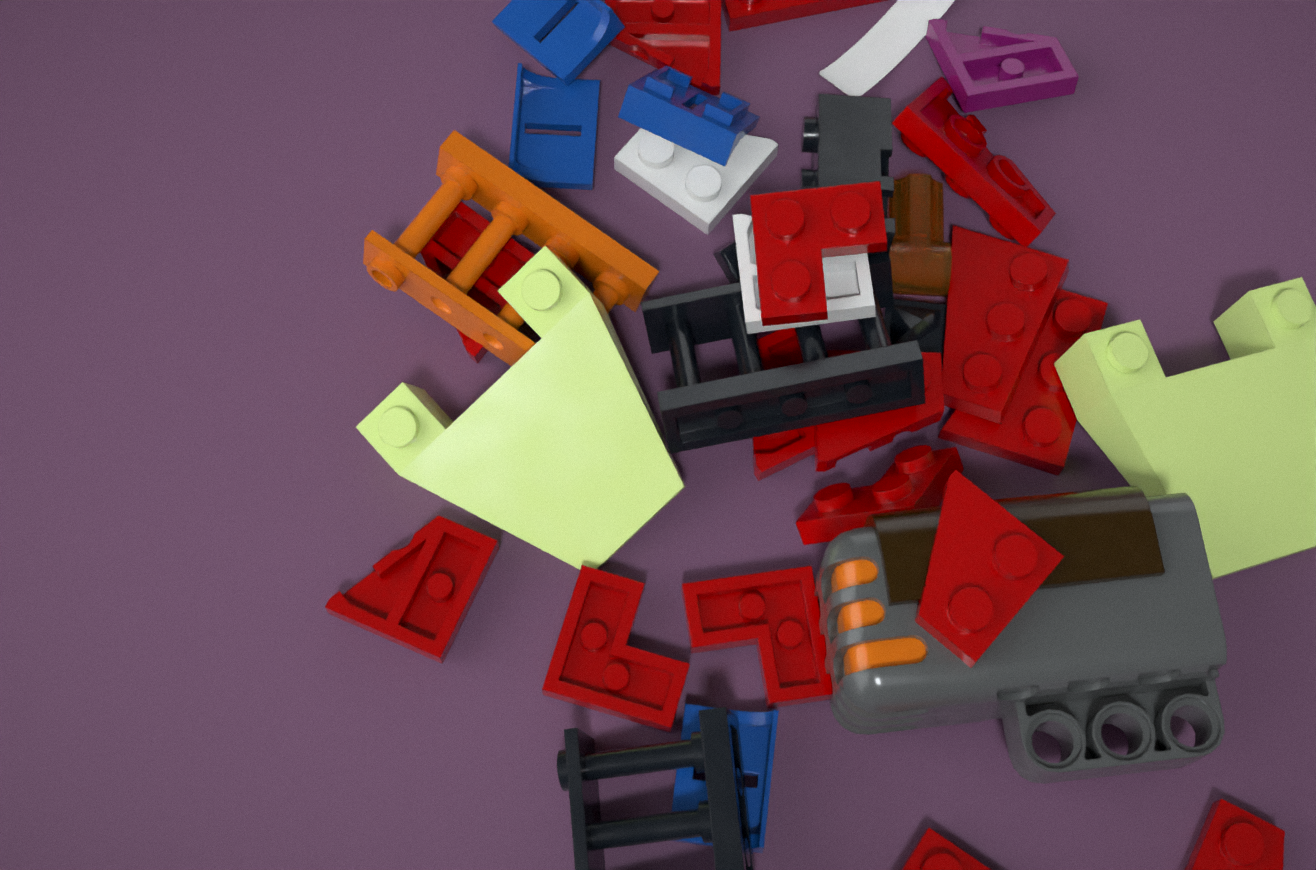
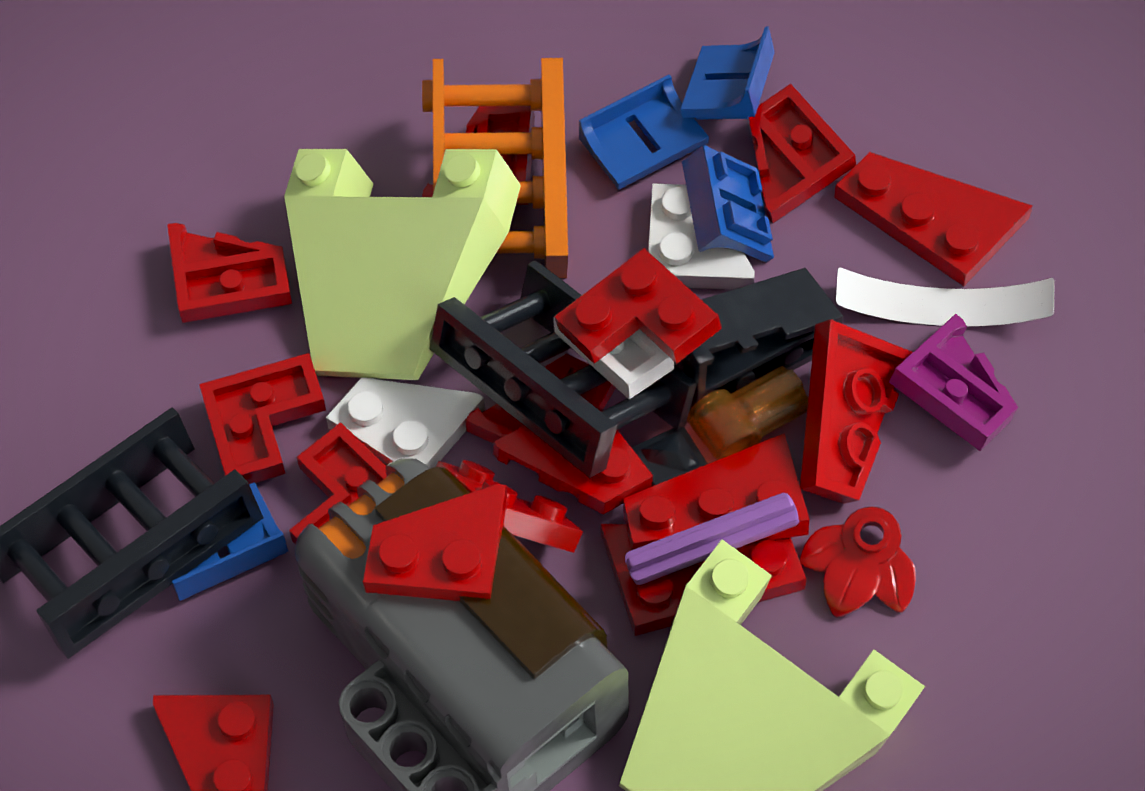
camera: 60 degrees right, 10 degrees down
(710, 529) = (405, 418): none -> white wing
(1045, 347) = (698, 542): none -> medium lavender axle
(1119, 260) = (858, 569): none -> red plate

